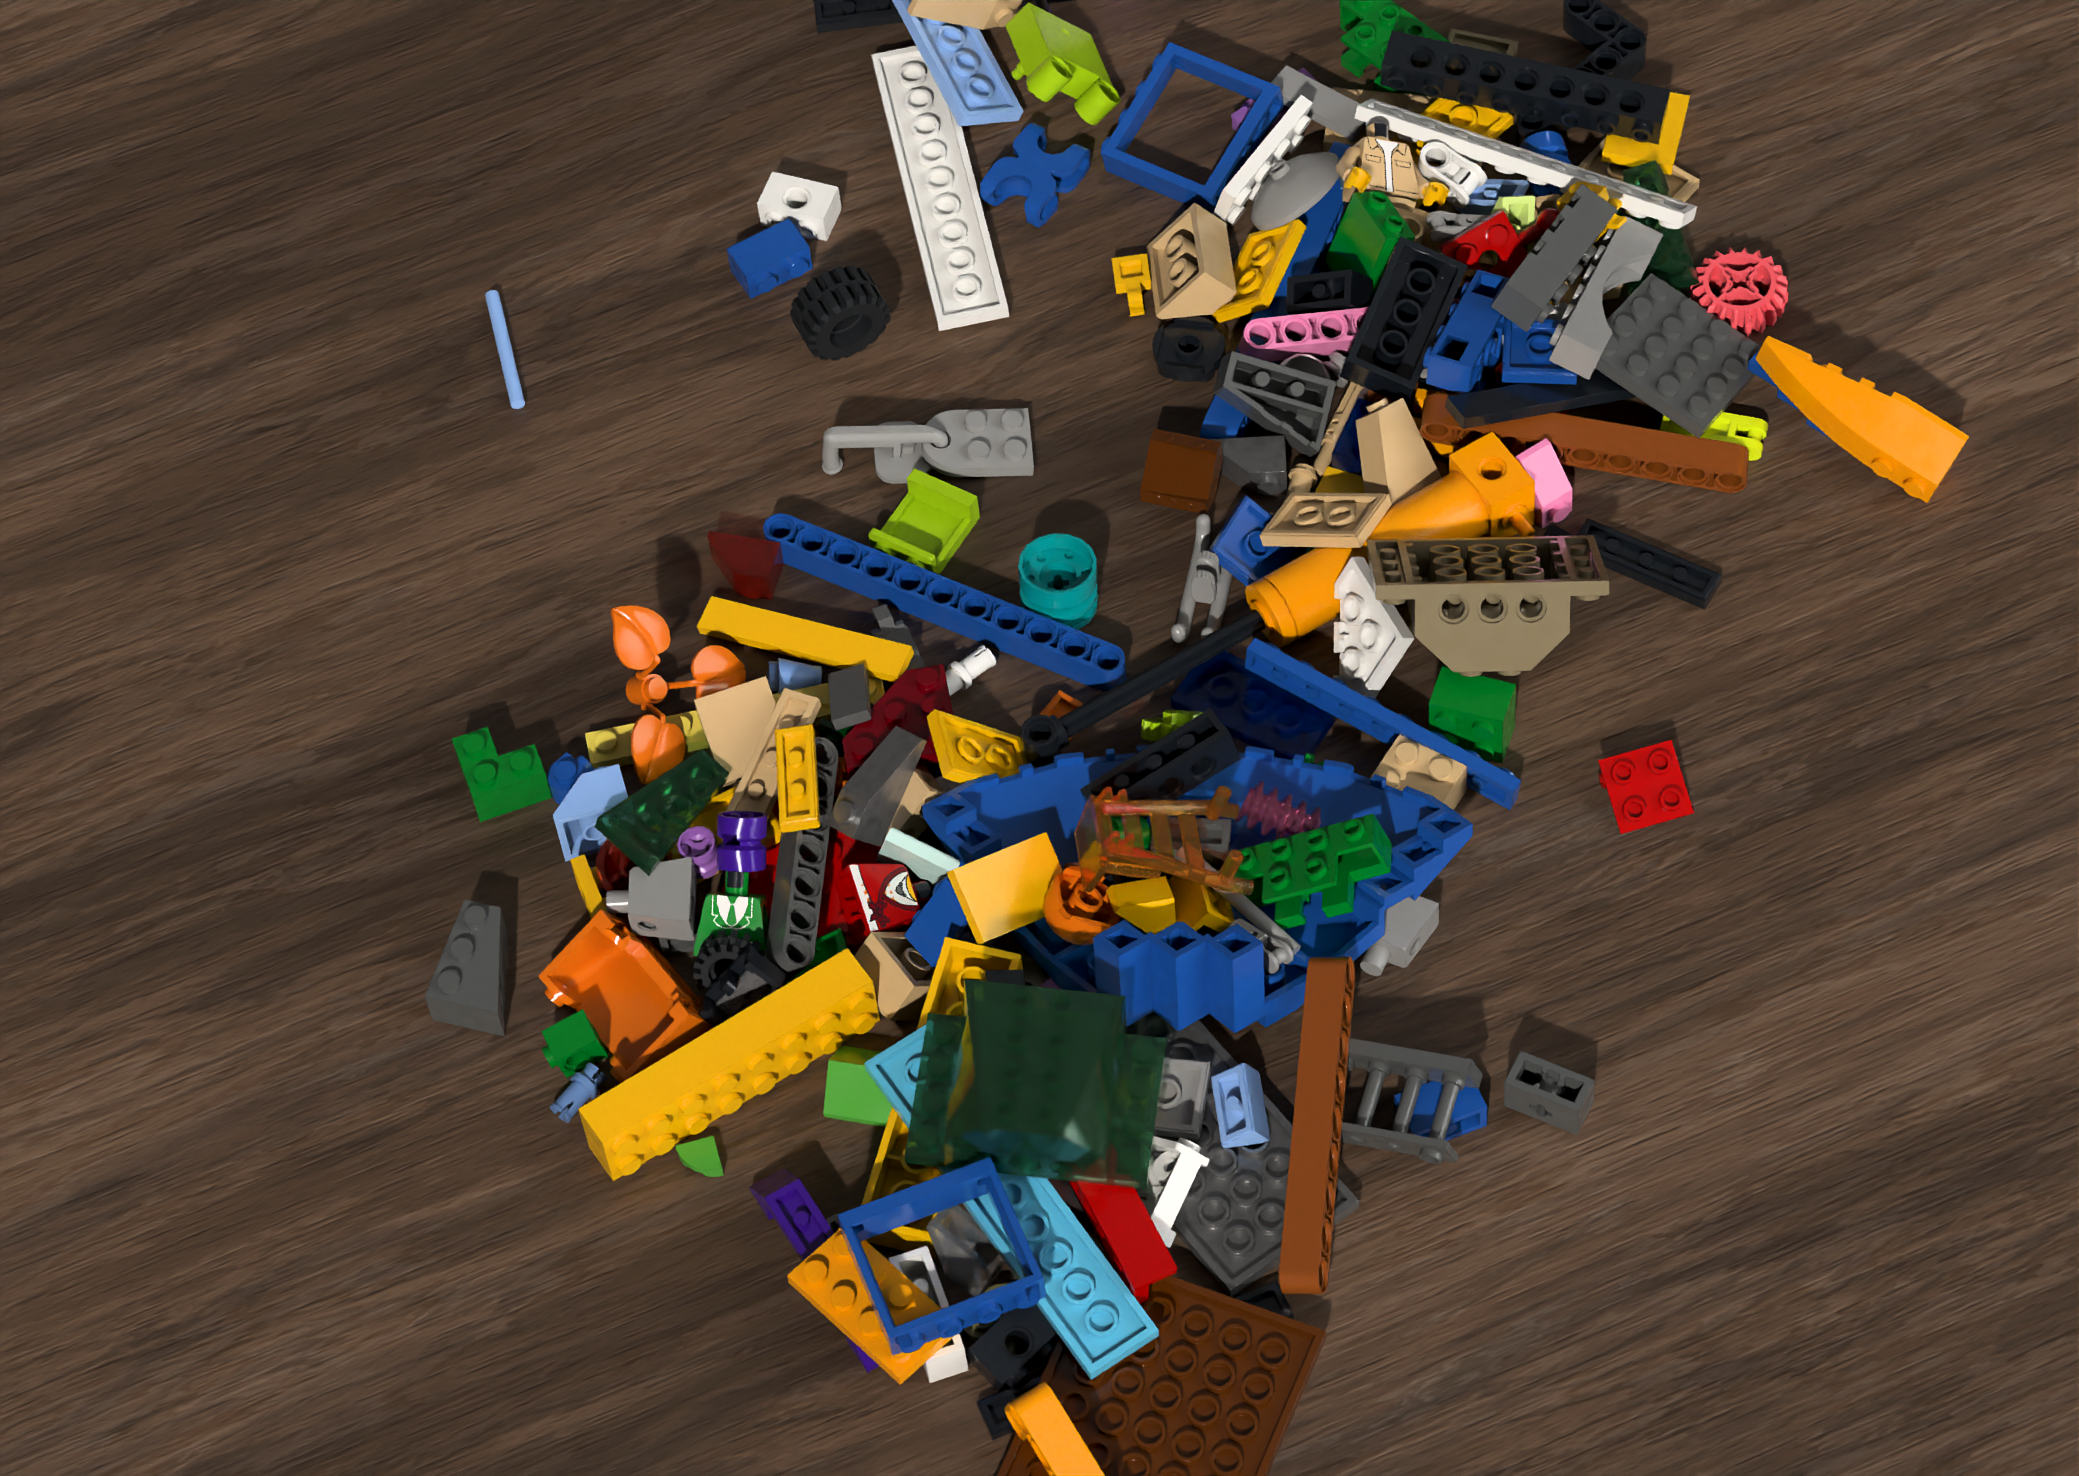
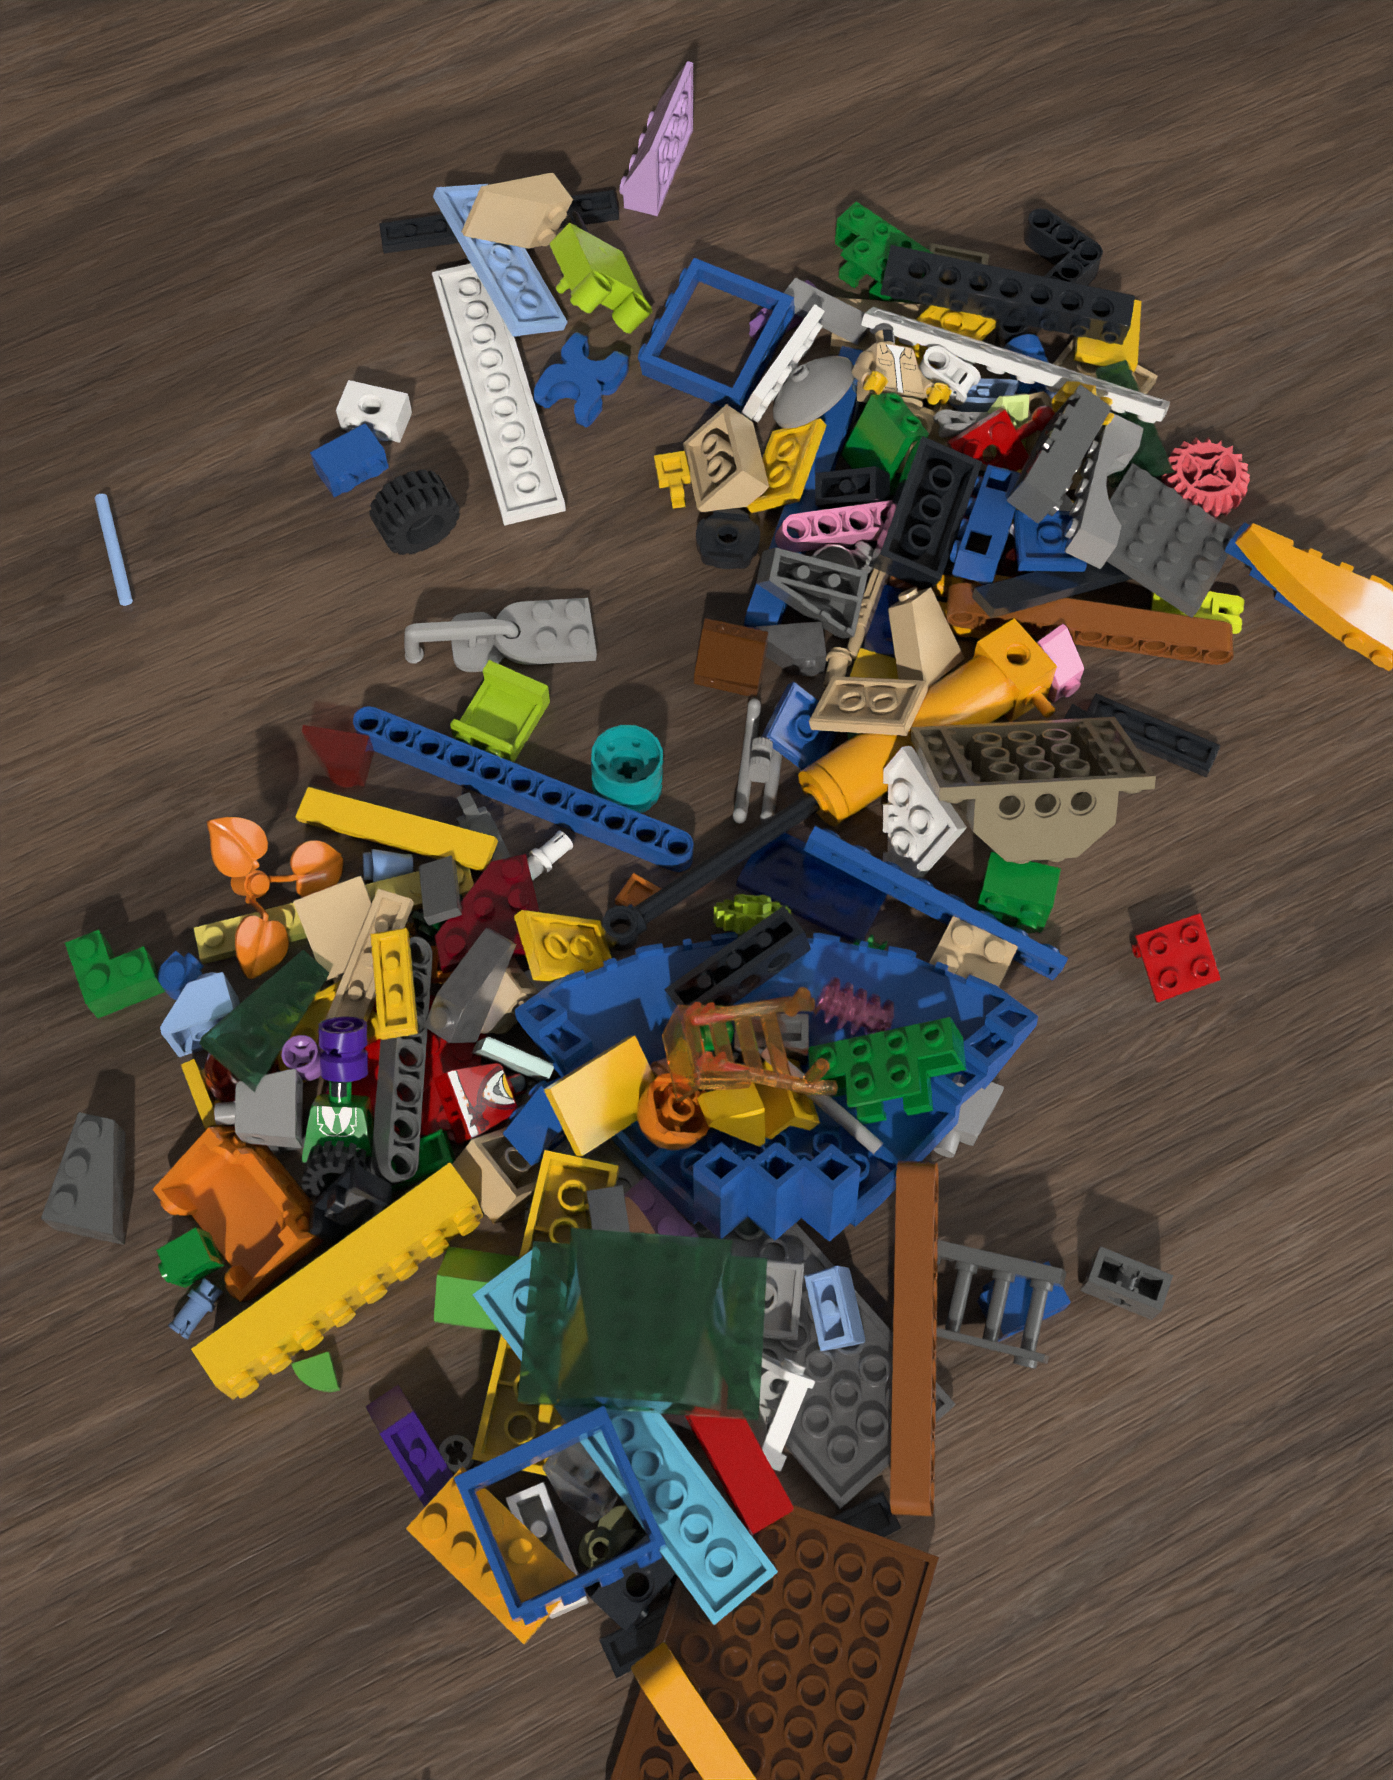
camera: 10 degrees left, 10 degrees up
(1274, 950) = (827, 1132): light grey bar -> none

